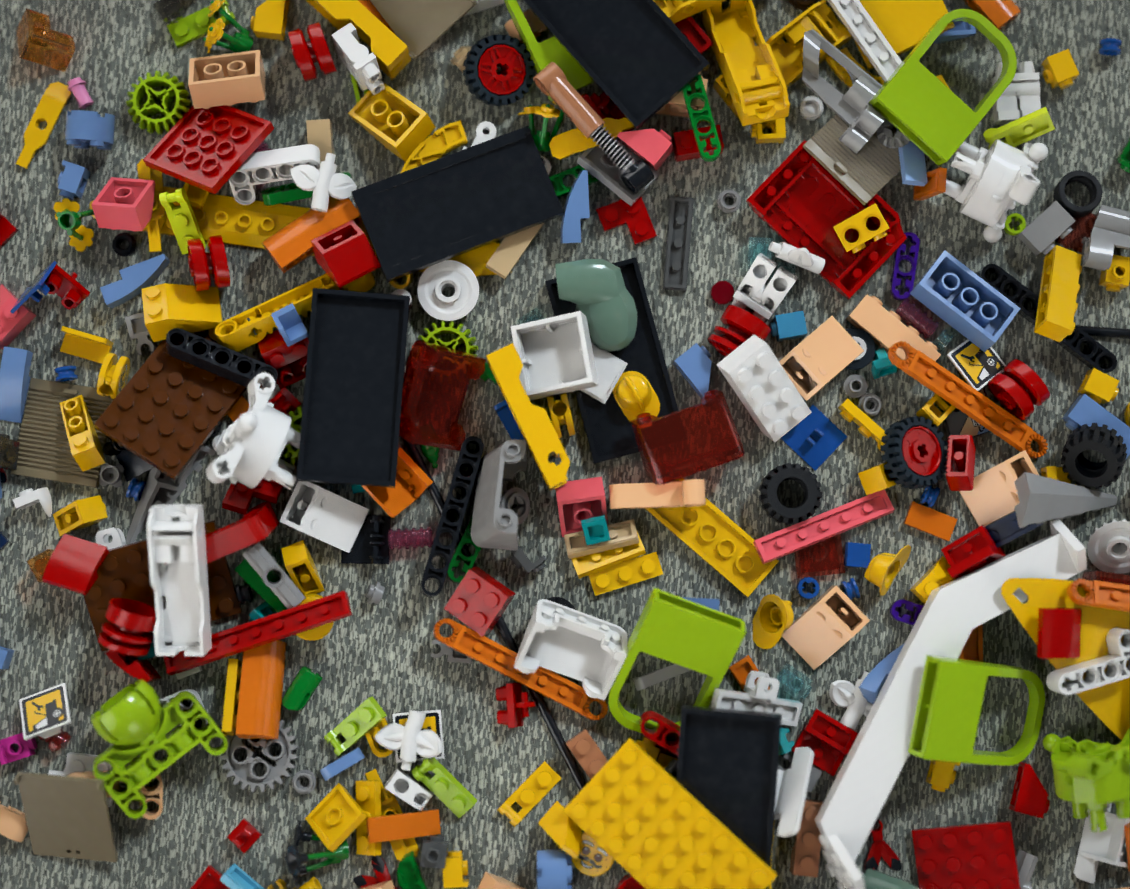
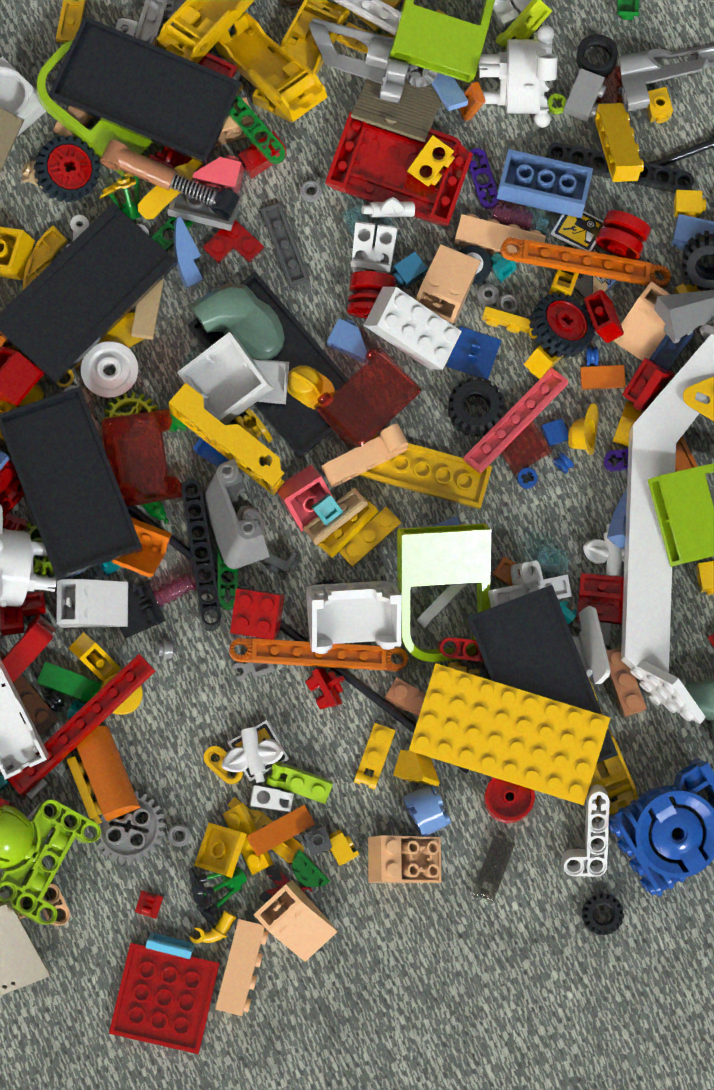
camera: 25 degrees left, 5 degrees down
(263, 563) = (59, 664): light grey piece -> none
(301, 689) = (140, 758): green arm -> none
(342, 763) = (204, 804): medium blue beam -> none
(355, 726) = (201, 766): lime plate -> none
(592, 857) = (453, 780): yellow head -> none
(722, 292) = (341, 268): dark red tile -> none
(771, 621) = (509, 518): yellow piece -> none
(777, 128) = (322, 112): yellow brick -> none
(811, 107) = (343, 84): white tile -> none
(825, 627) = (556, 502): light nougat slope -> none
(879, 849) = (689, 665): red piece -> none

